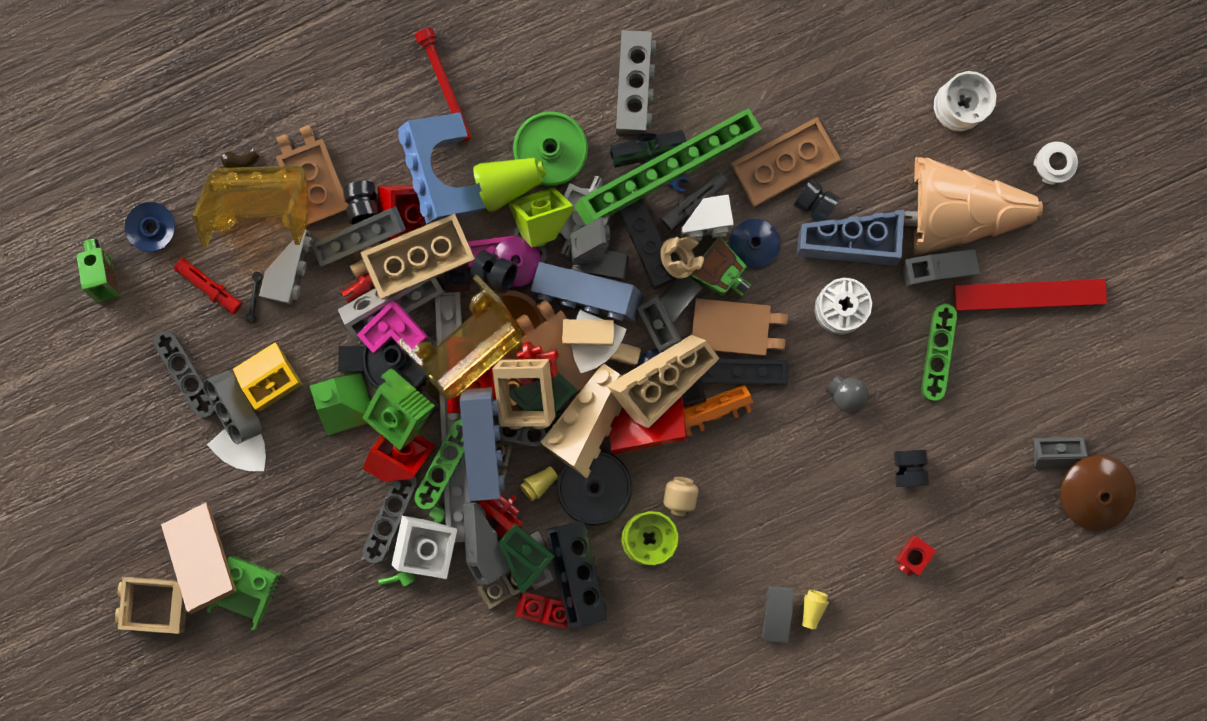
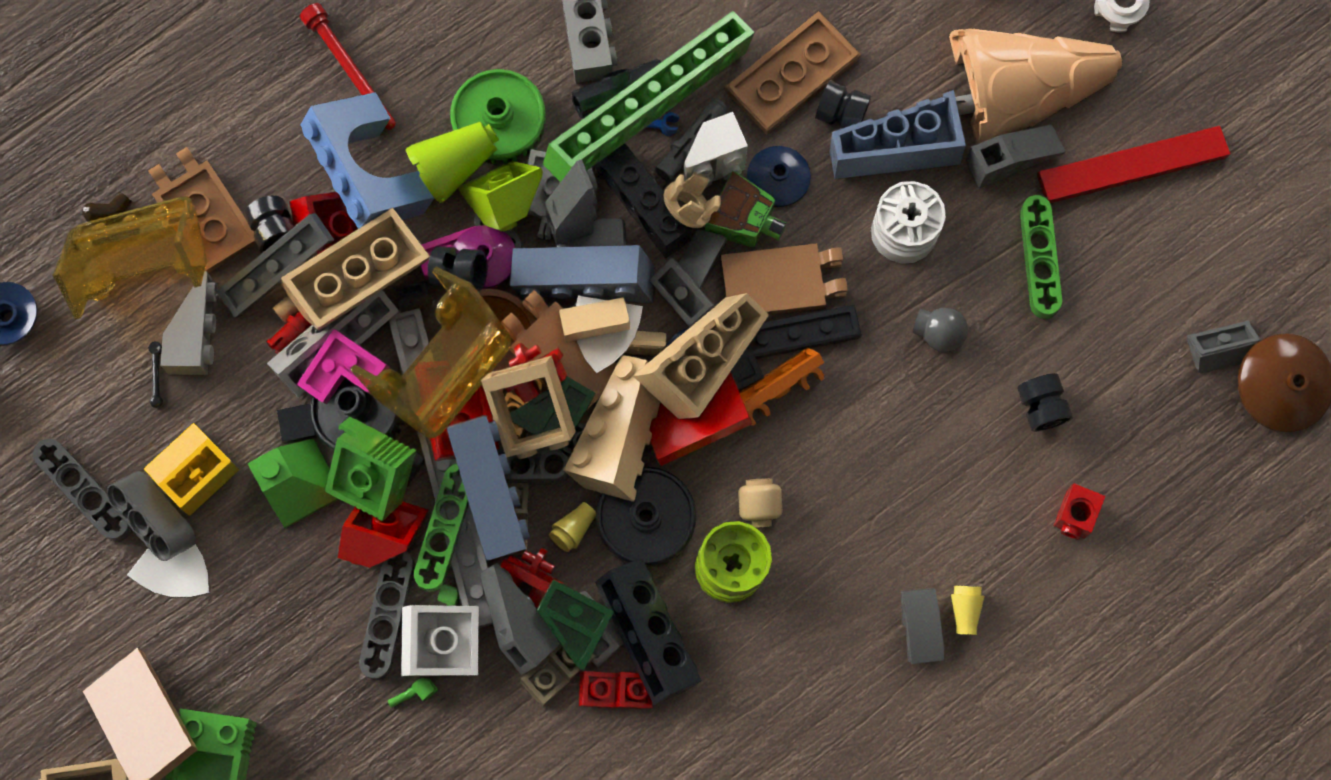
camera: 15 degrees left, 10 degrees down
(216, 292) = (104, 377): red pin -> none

